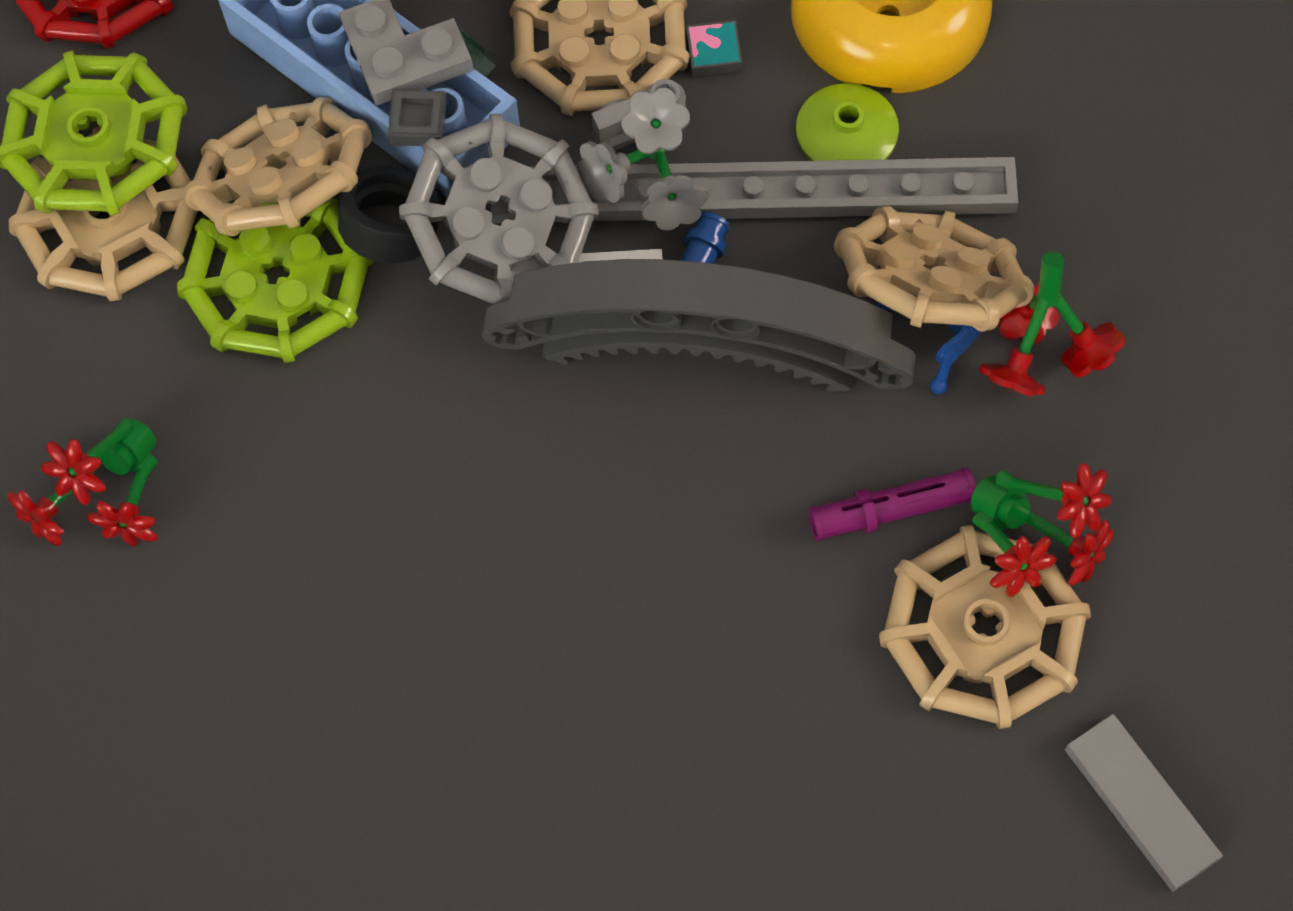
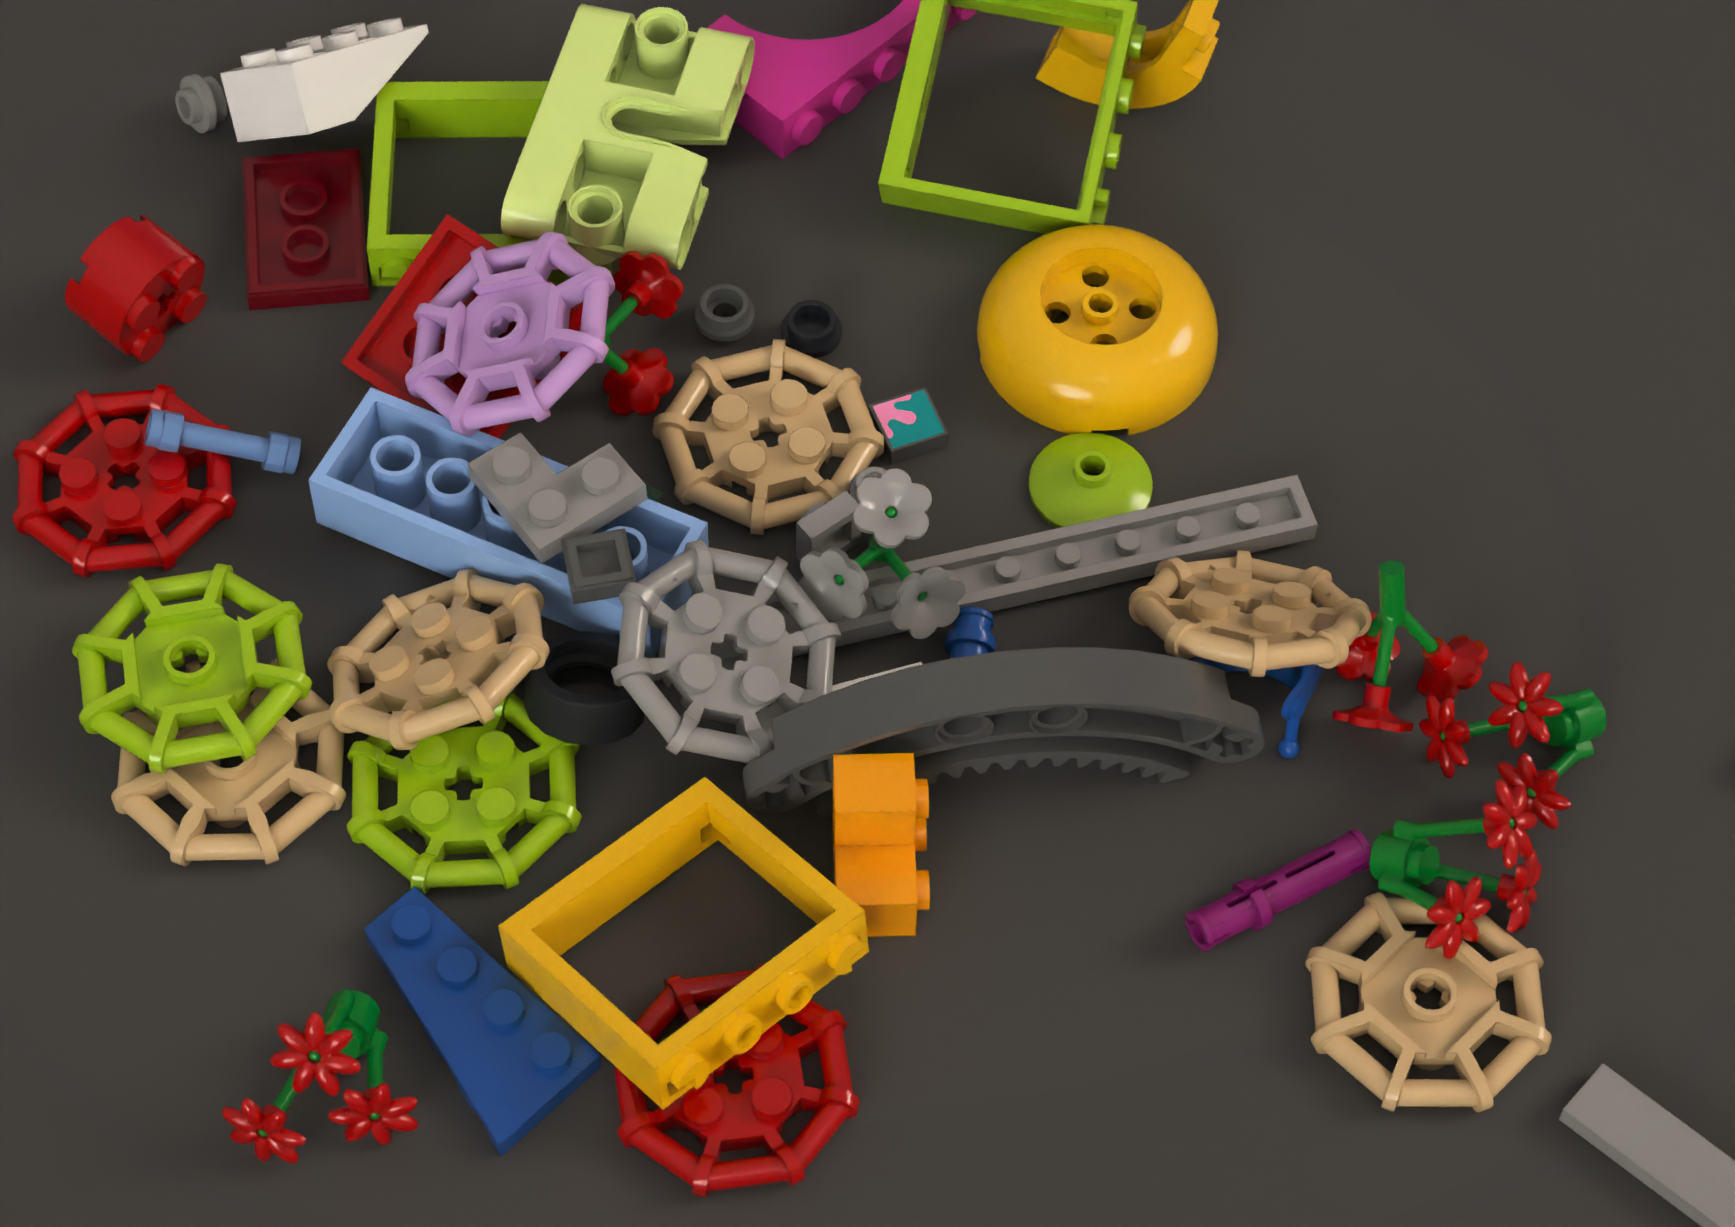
camera: 20 degrees left, 10 degrees down
(234, 472) = (491, 1031): none -> blue wing
(370, 374) = (633, 866): none -> yellow window
(429, 583) = (750, 1117): none -> red plate
(576, 386) = (875, 835): none -> light orange brick
(1171, 416) = (1559, 720): none -> red plant

